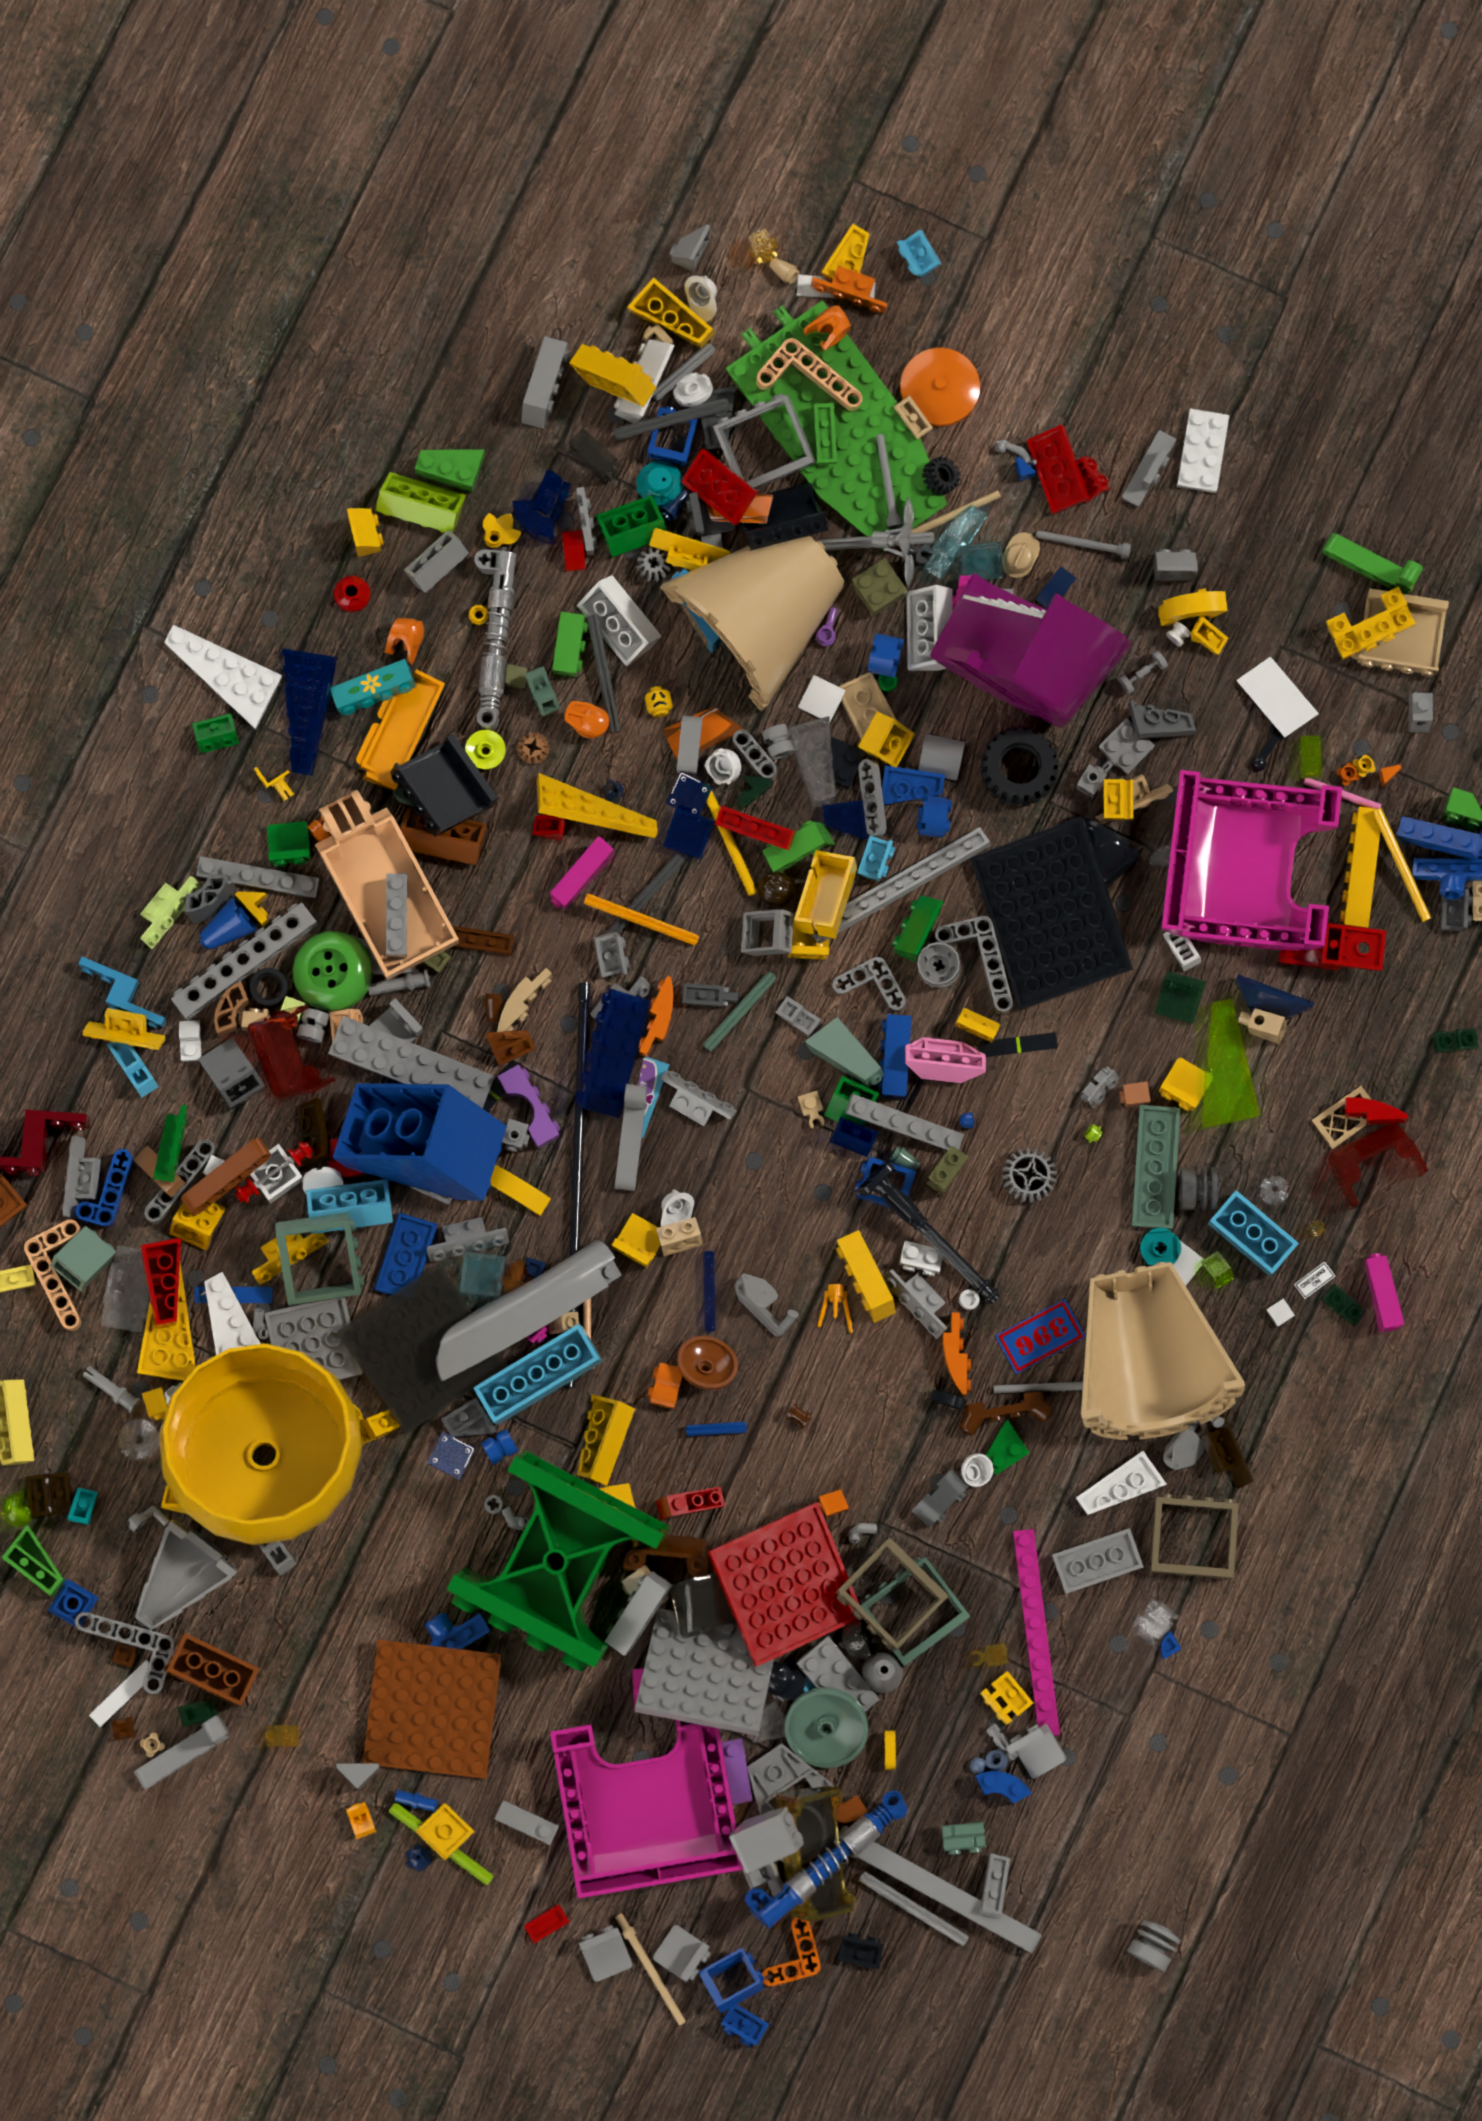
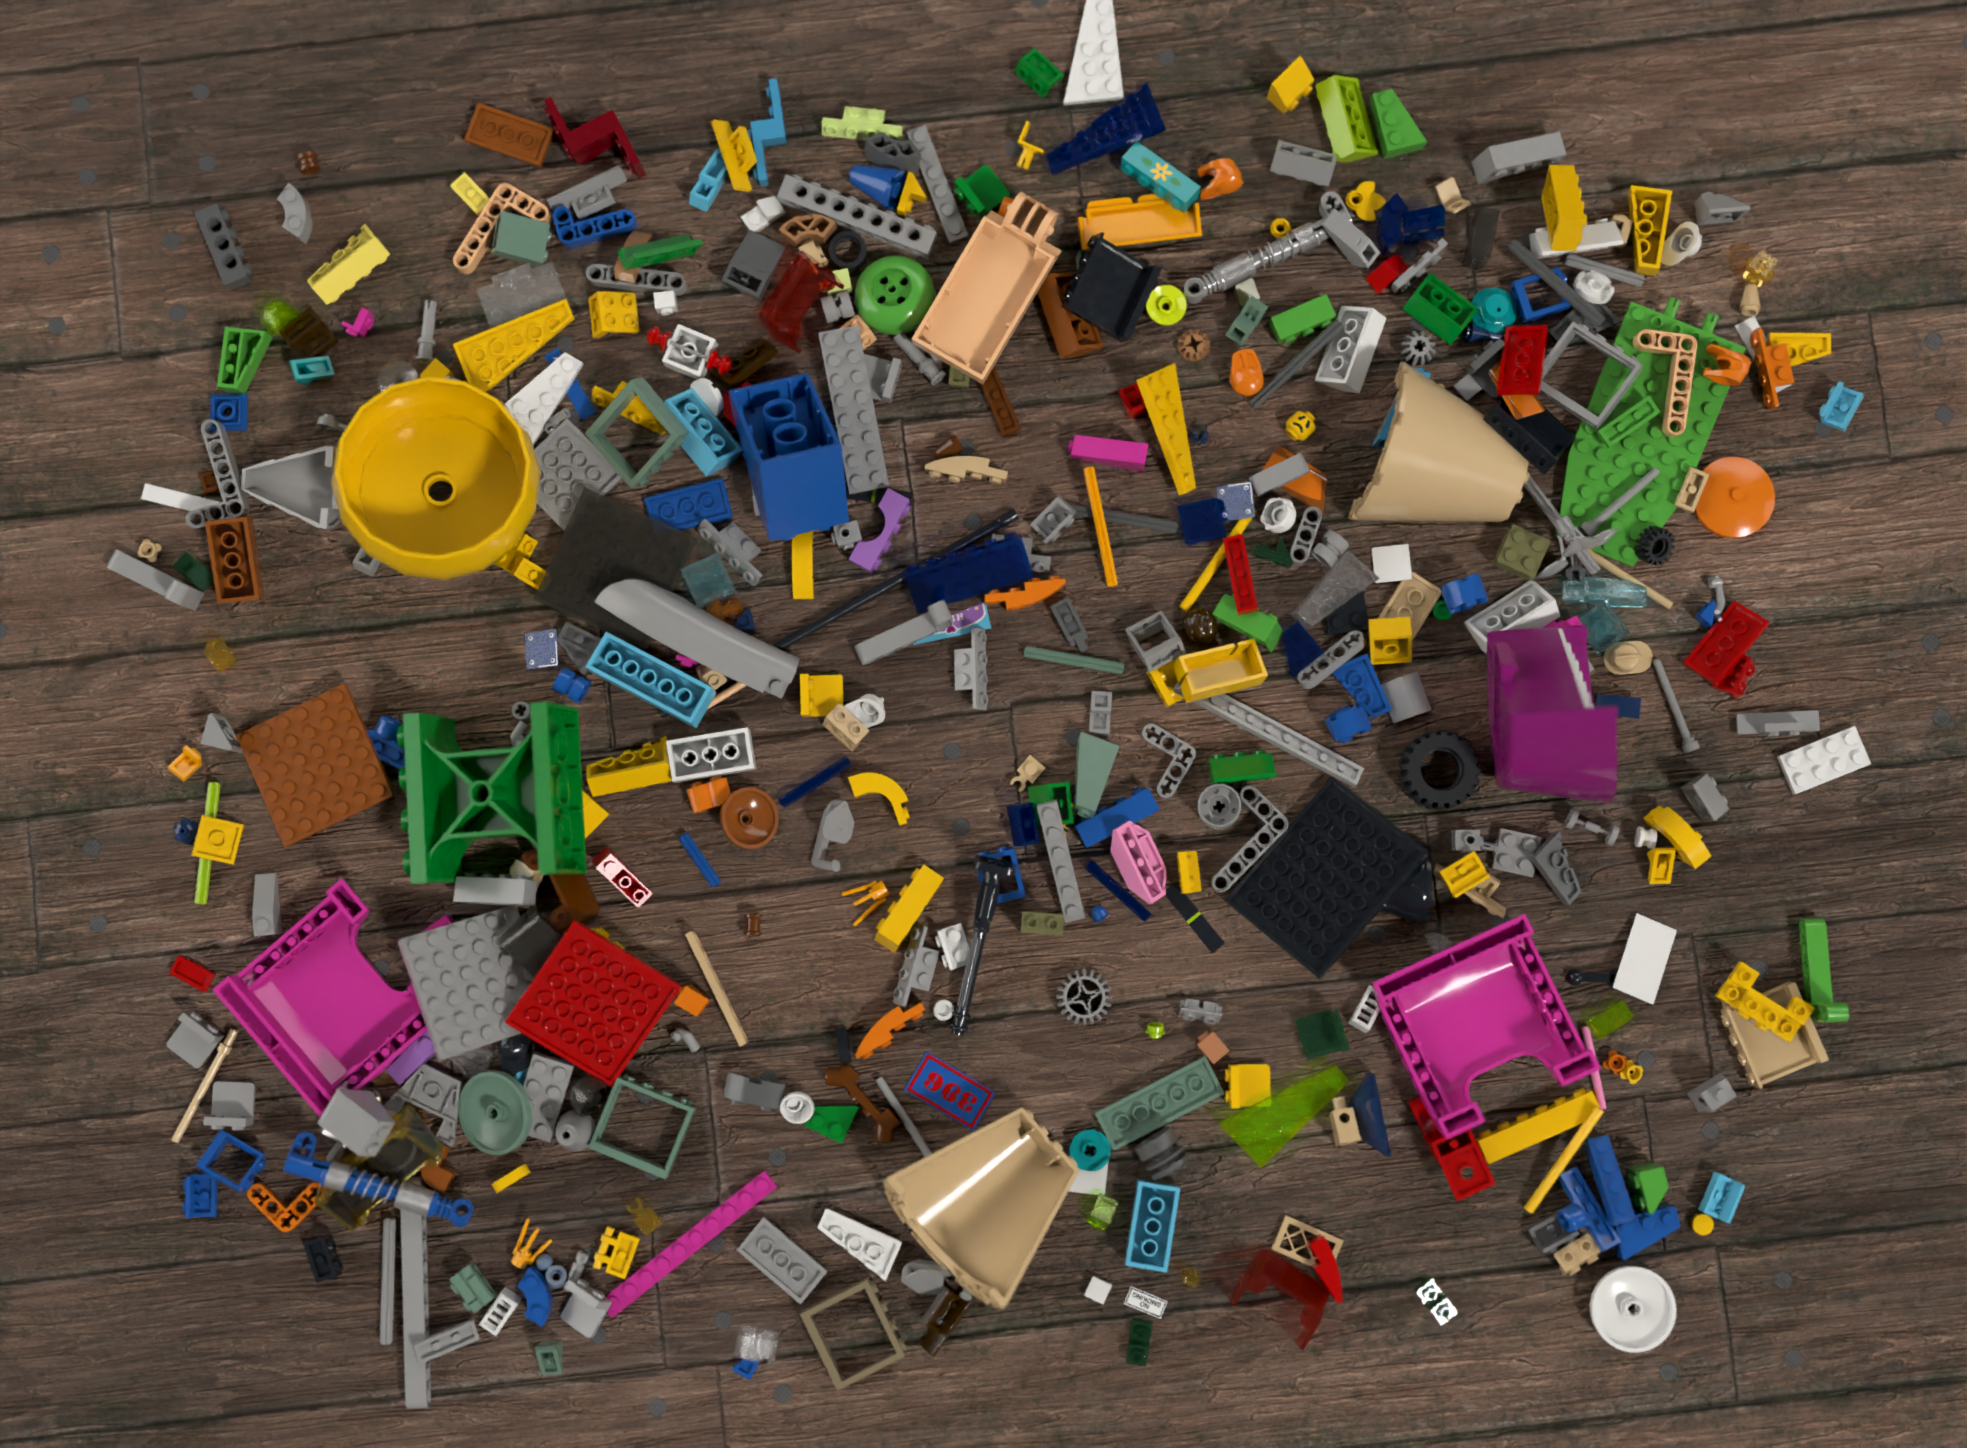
camera: 65 degrees right, 5 degrees up
(68, 1437) = (363, 322): none -> dark pink bracket
(123, 1728) = (149, 518): reddish brown tile -> none
(162, 1271) = (540, 314): red wedge -> none
(226, 1176) = (659, 312): dark orange beam -> none
(354, 603) = (1227, 120): red piece -> none
(396, 915) = (970, 315): light grey brick -> none
(416, 1800) = (230, 799): blue pin -> none
(509, 1045) = (922, 482): dark orange wing -> none
(530, 563) = (1350, 240): none -> light grey slope
(542, 458) = (1450, 196): none -> tan bracket
(646, 1359) = (701, 746): none -> white brick
(685, 551) = (1446, 365): yellow bracket -> none
(750, 1233) = (876, 783): none -> yellow arch
(825, 635) = (1449, 532): medium lavender plate -> none
(834, 1478) = (717, 988): none -> tan tile
(875, 857) = (1280, 694): medium azure bracket -> none
(904, 1159) = (1031, 879): sand green cone -> none
(915, 1571) = (603, 1101): dark tan window -> none
(957, 1093) = (1118, 891): none -> clear blue axle
(962, 1779) = (522, 1255): none -> light orange plant
(987, 1822) = (508, 1300): none -> white slope
(1062, 1806) = (550, 1357): none -> sand green slope
(1268, 1195) = (1196, 1214): clear brick -> none
(1383, 1293) = (1169, 1373): dark pink slope -> none
(1388, 773) = (1637, 1097): orange slope -> none

